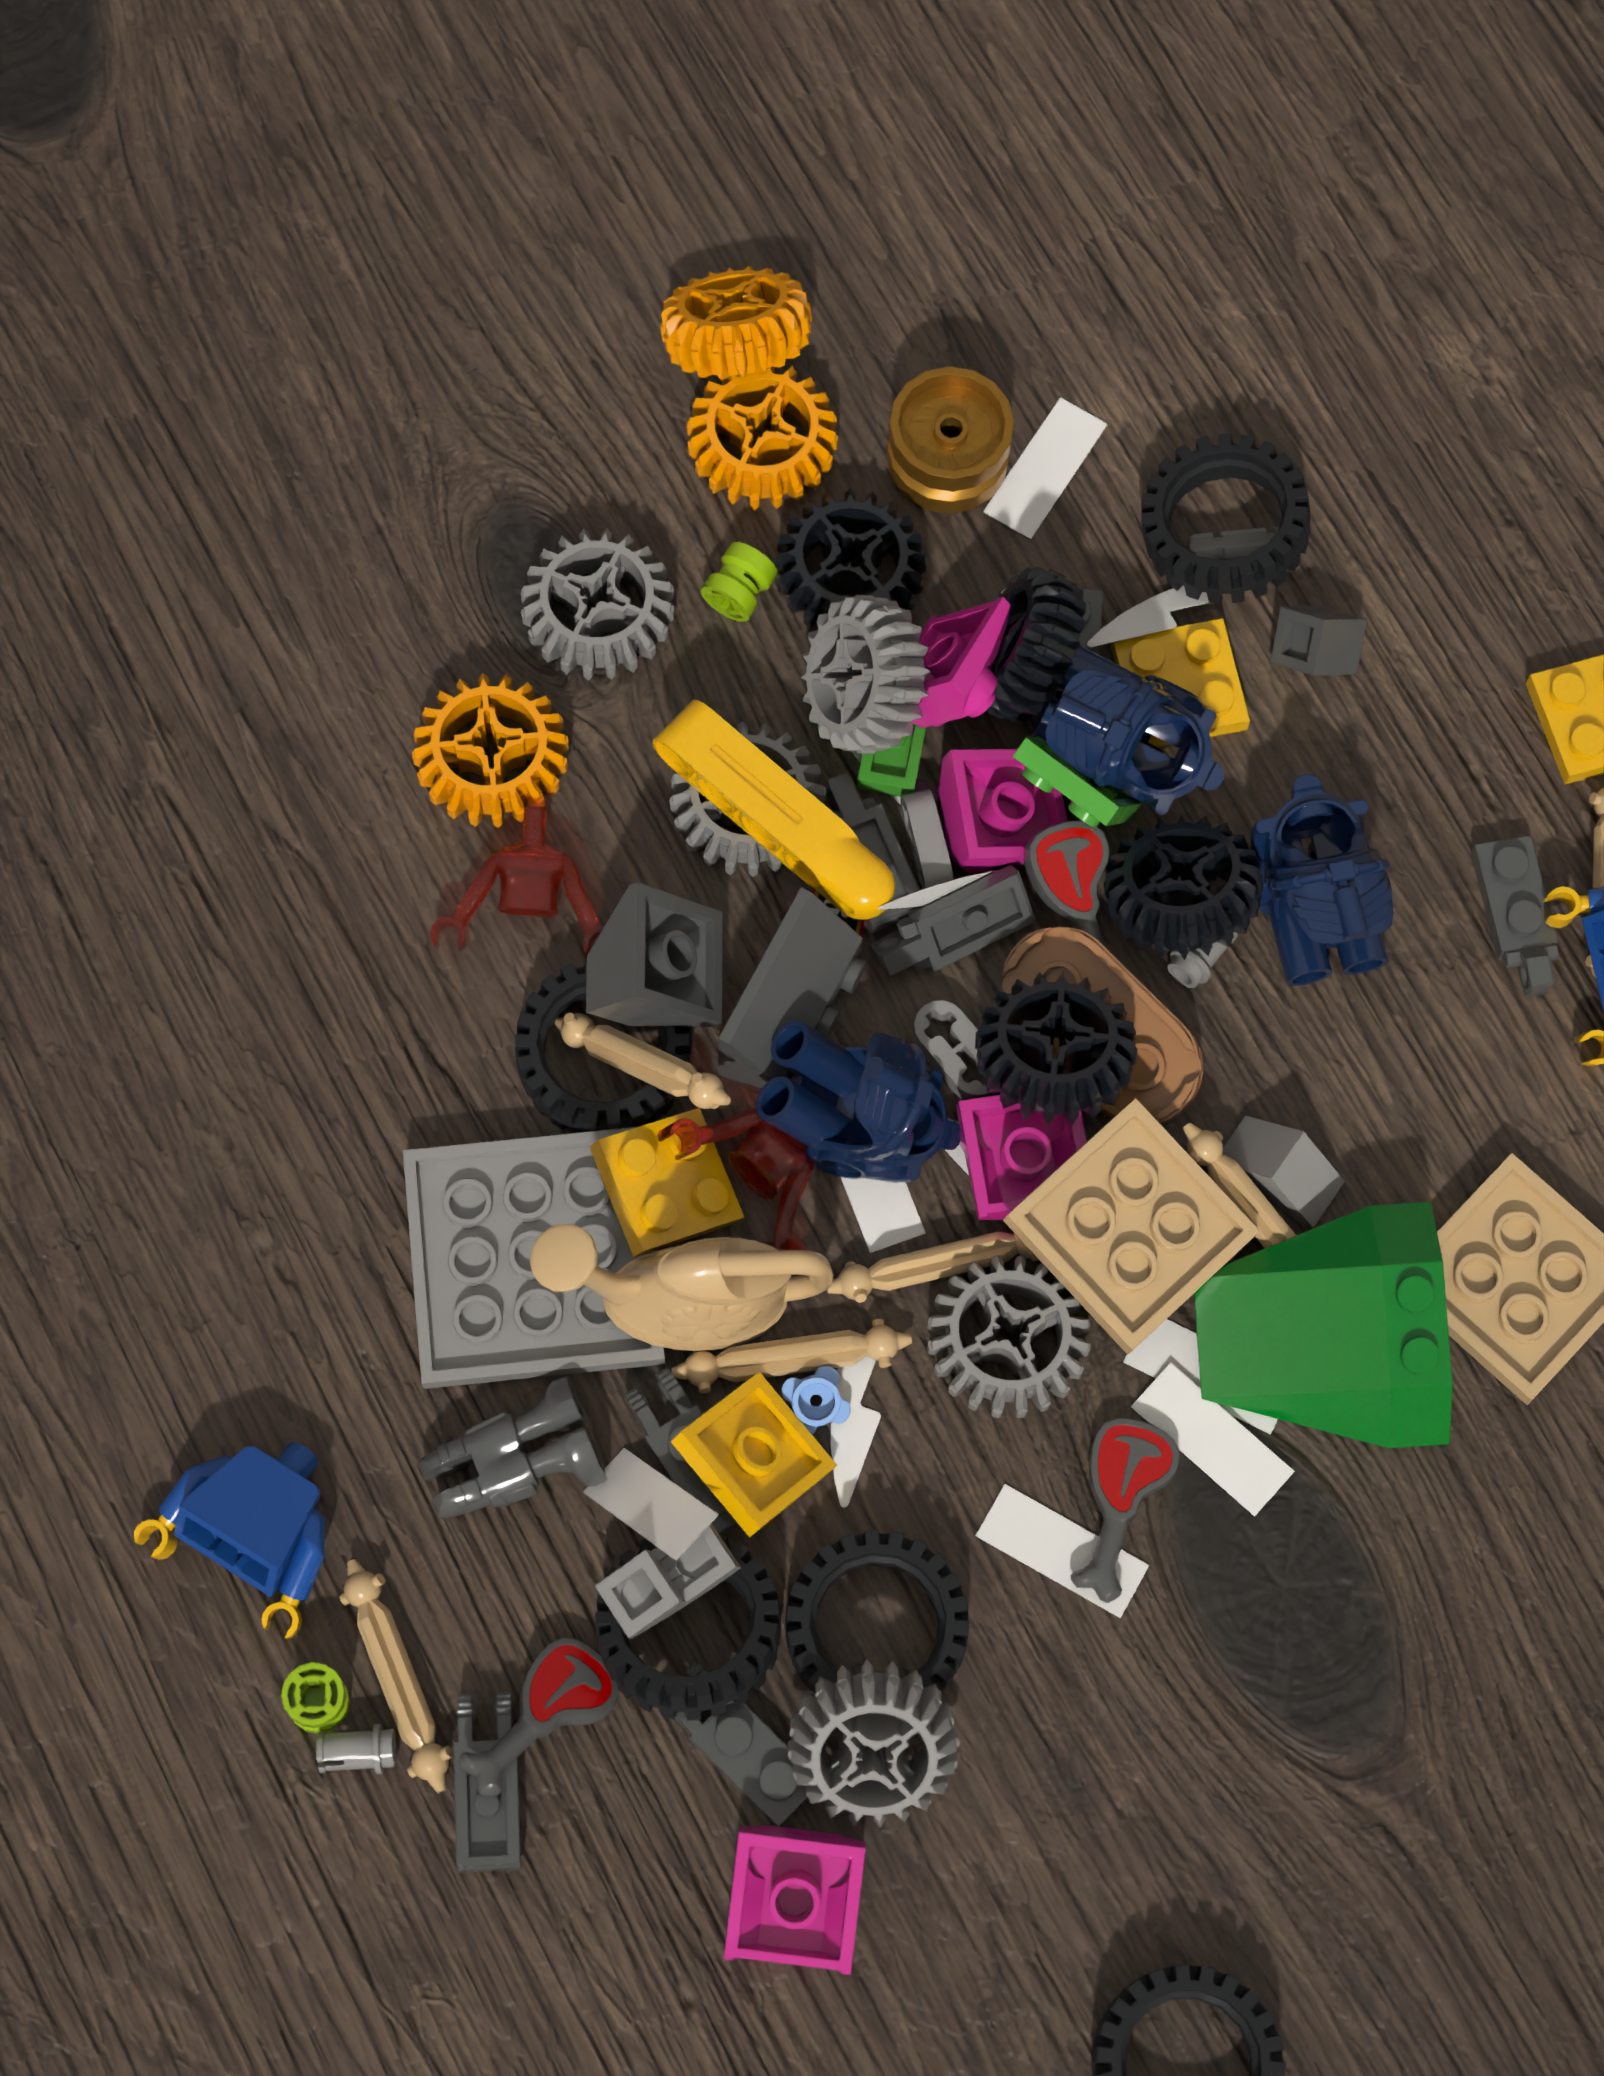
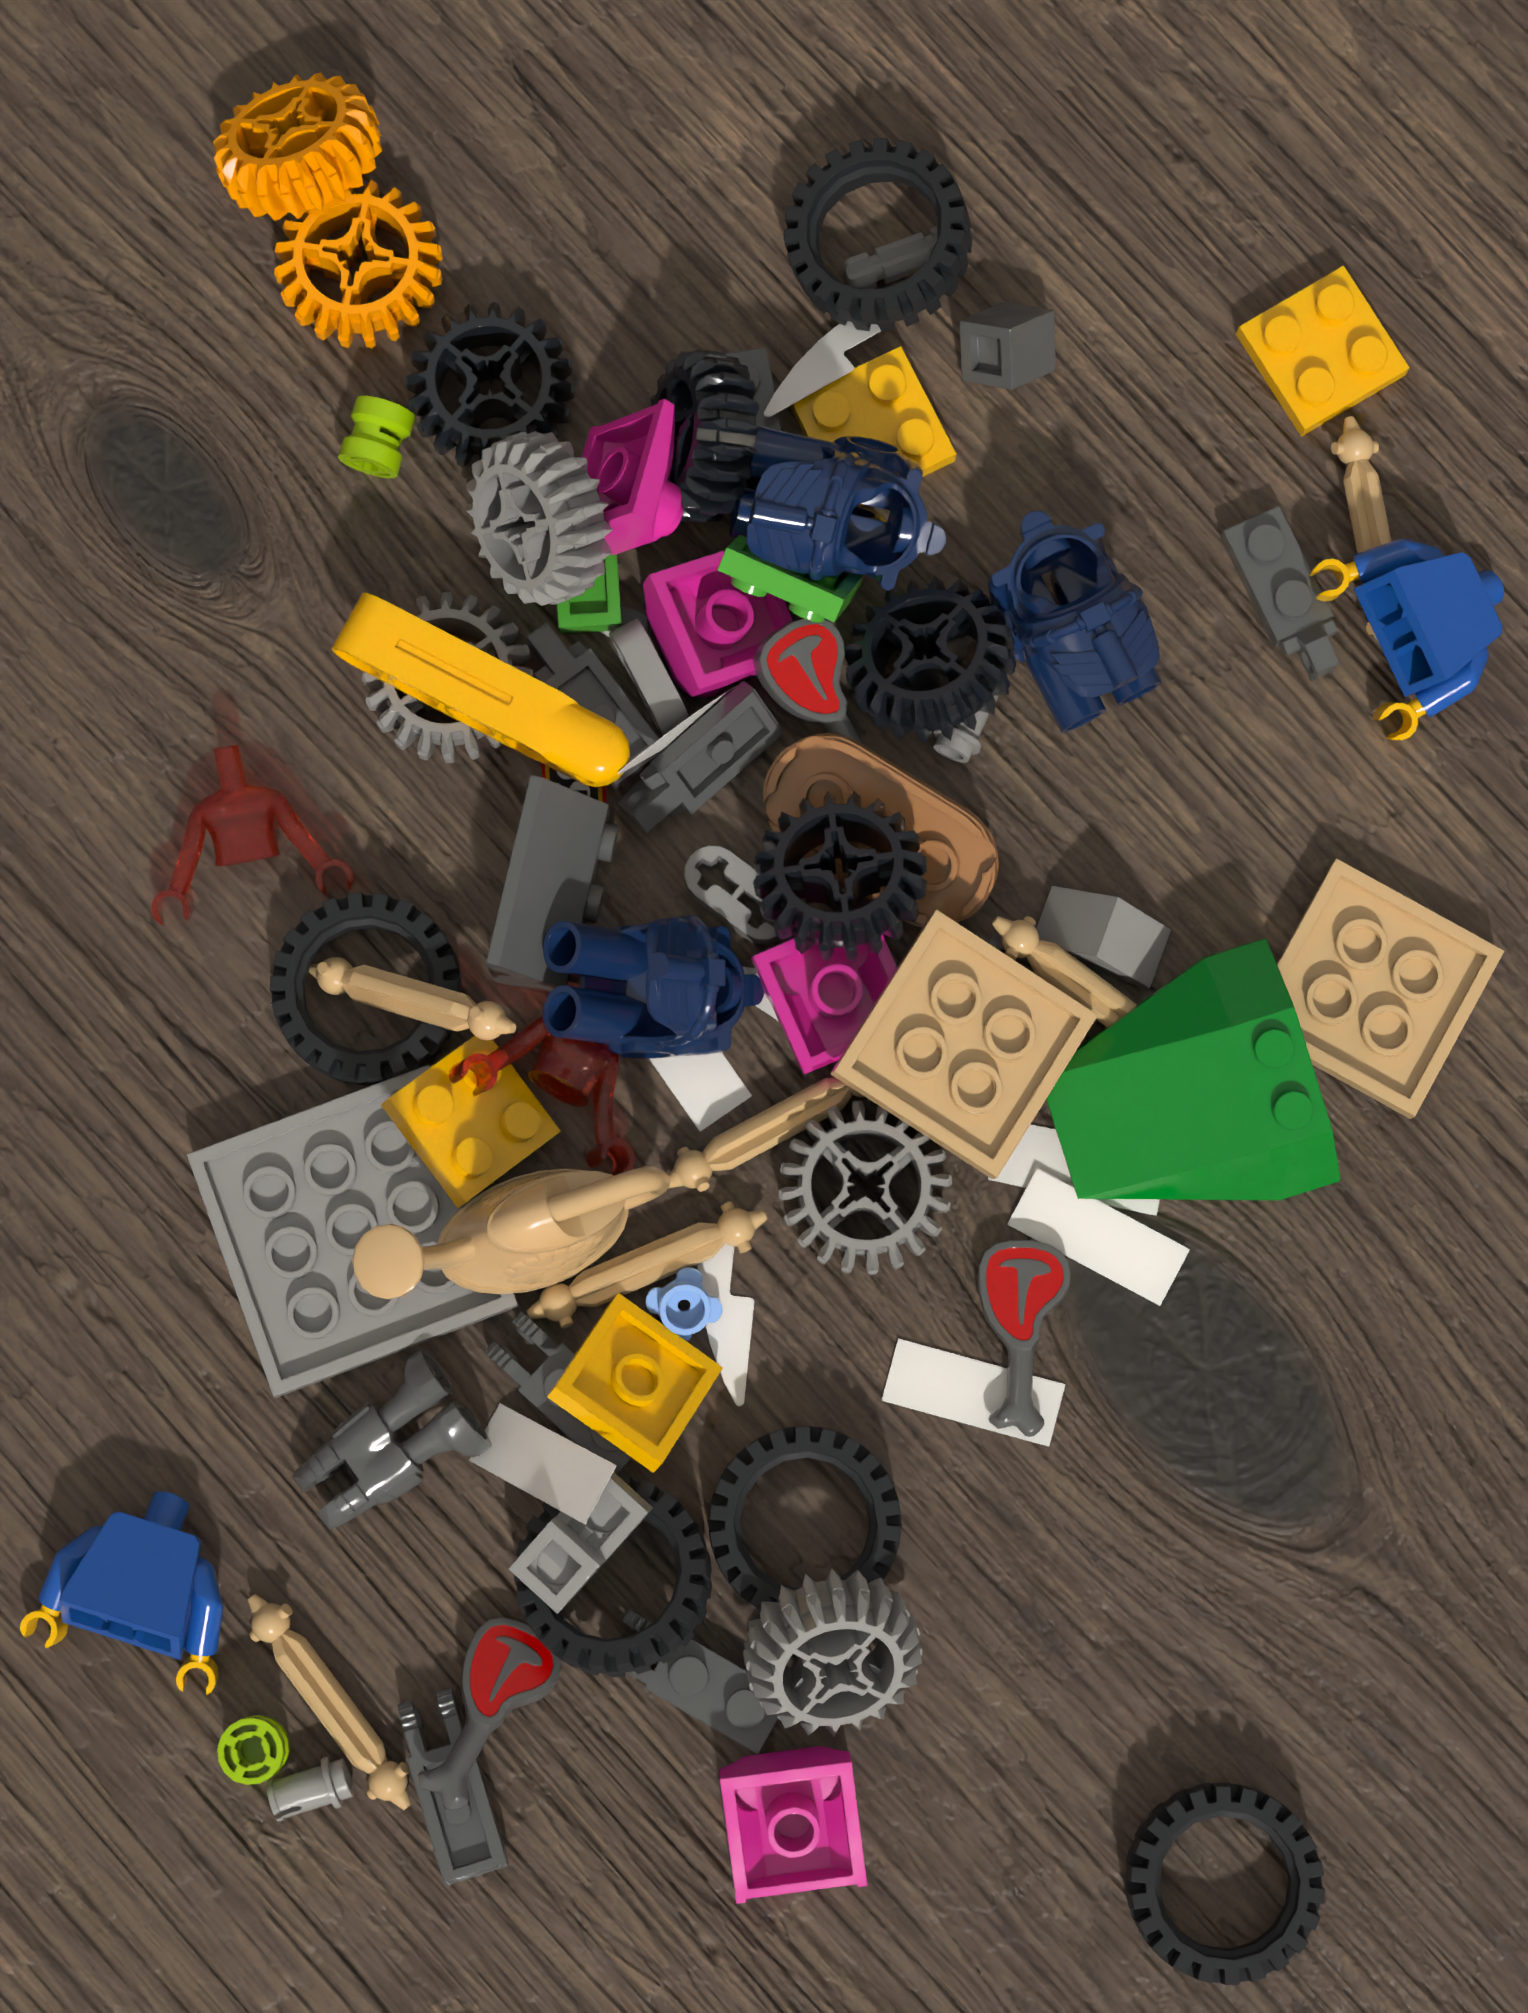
camera: 15 degrees left, 10 degrees up
(466, 751) = (134, 700): light orange gear -> none
(562, 581) = (206, 493): light grey gear -> none
(657, 962) = (400, 890): dark grey slope -> none
(949, 440) = (529, 211): pearl gold wheel -> none
(1045, 468) = (671, 220): white sticker -> none

